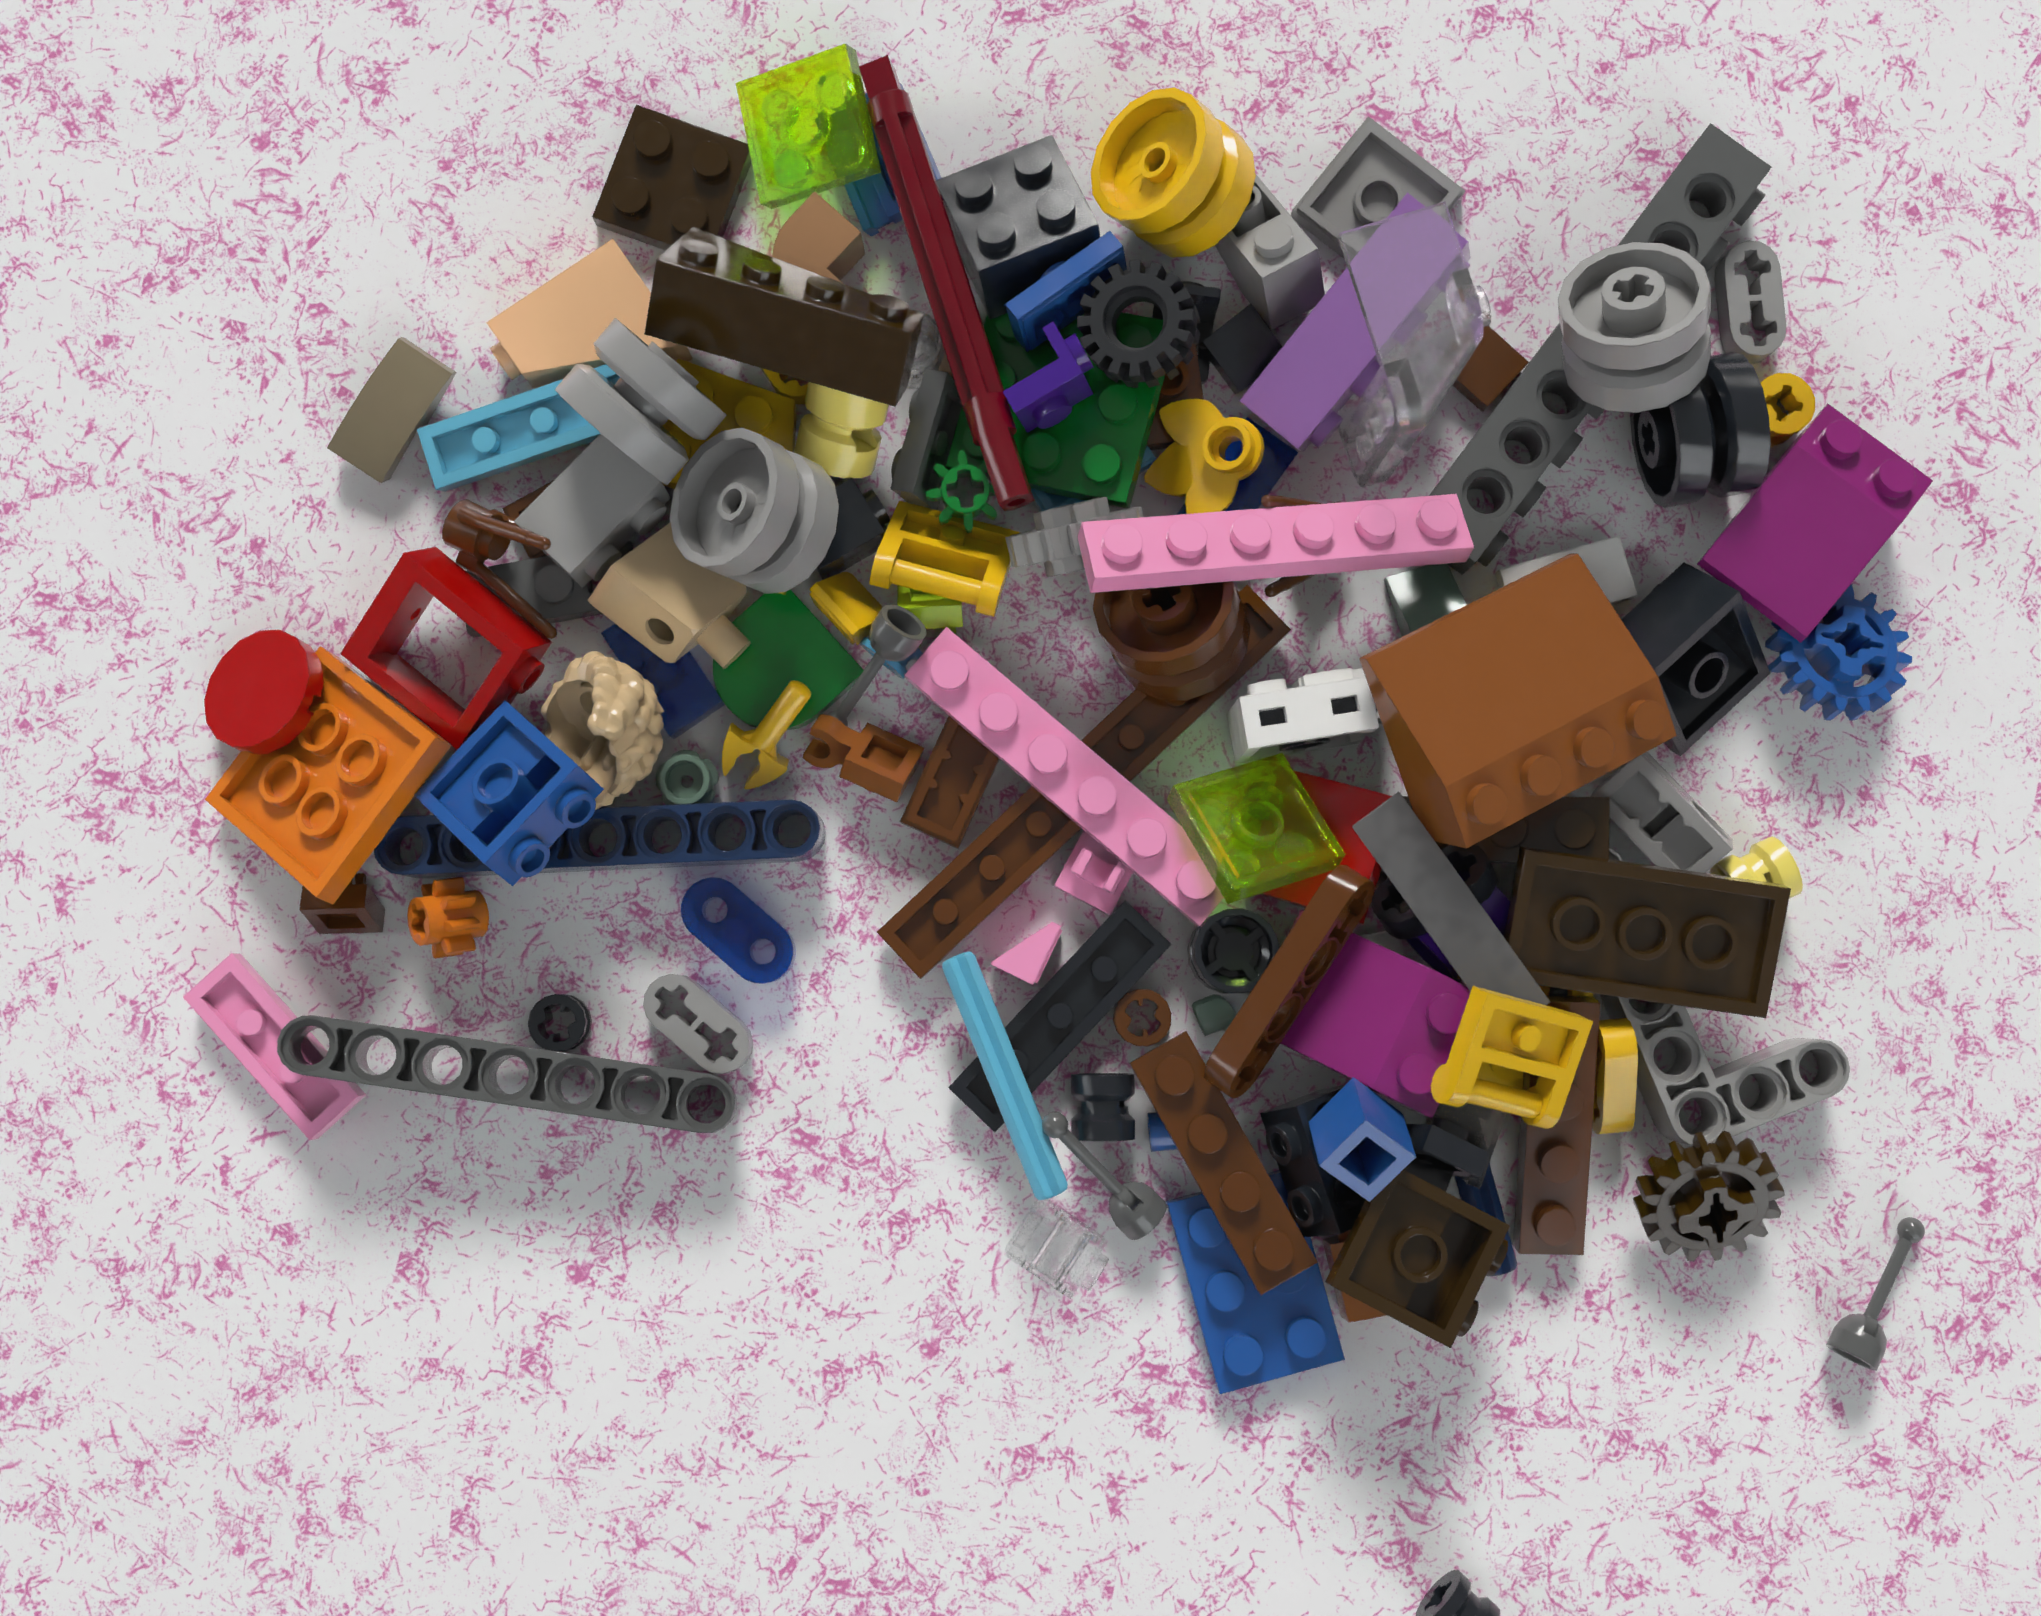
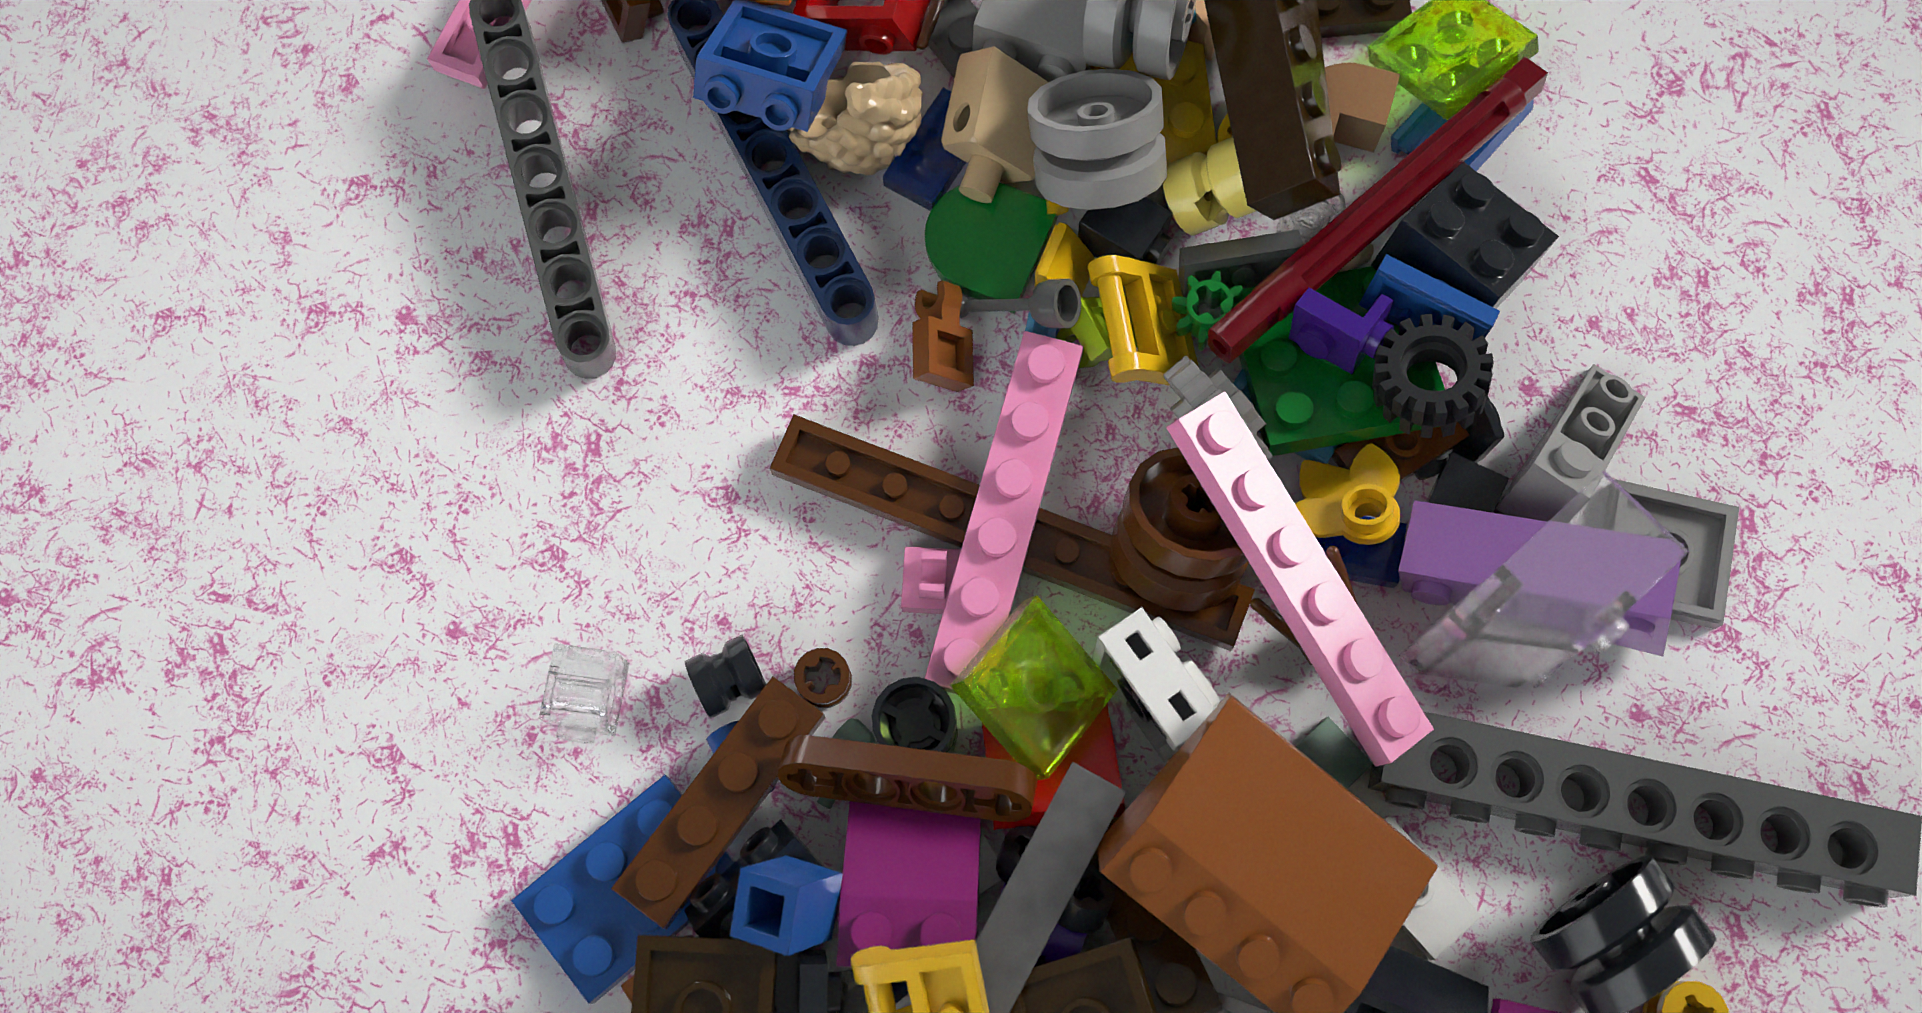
camera: 70 degrees right, 10 degrees down
(448, 917) = (652, 78): orange gear -> none
(542, 1014) = (609, 189): black bush -> none
(684, 764) = (856, 196): sand green plate -> none
(687, 1035) = (640, 308): light grey beam -> none
(739, 931) = (744, 309): clear blue plate -> none
(766, 737) = (918, 251): yellow bar -> none
(950, 786) = (948, 421): reddish brown plate -> none
(1004, 1075) = (713, 574): medium azure axle -> none
(1031, 955) = (833, 554): bright pink slope -> none
(1069, 1005) = (792, 603): black plate -> none
(1132, 1205) = (649, 742): dark grey hinge -> none
(1173, 173) = (1584, 350): yellow wheel -> none
(1489, 370) = (1571, 712): reddish brown tile -> none
(1635, 326) = (1681, 815): light grey wheel -> none
(1764, 301) = (1783, 957): light grey beam -> none

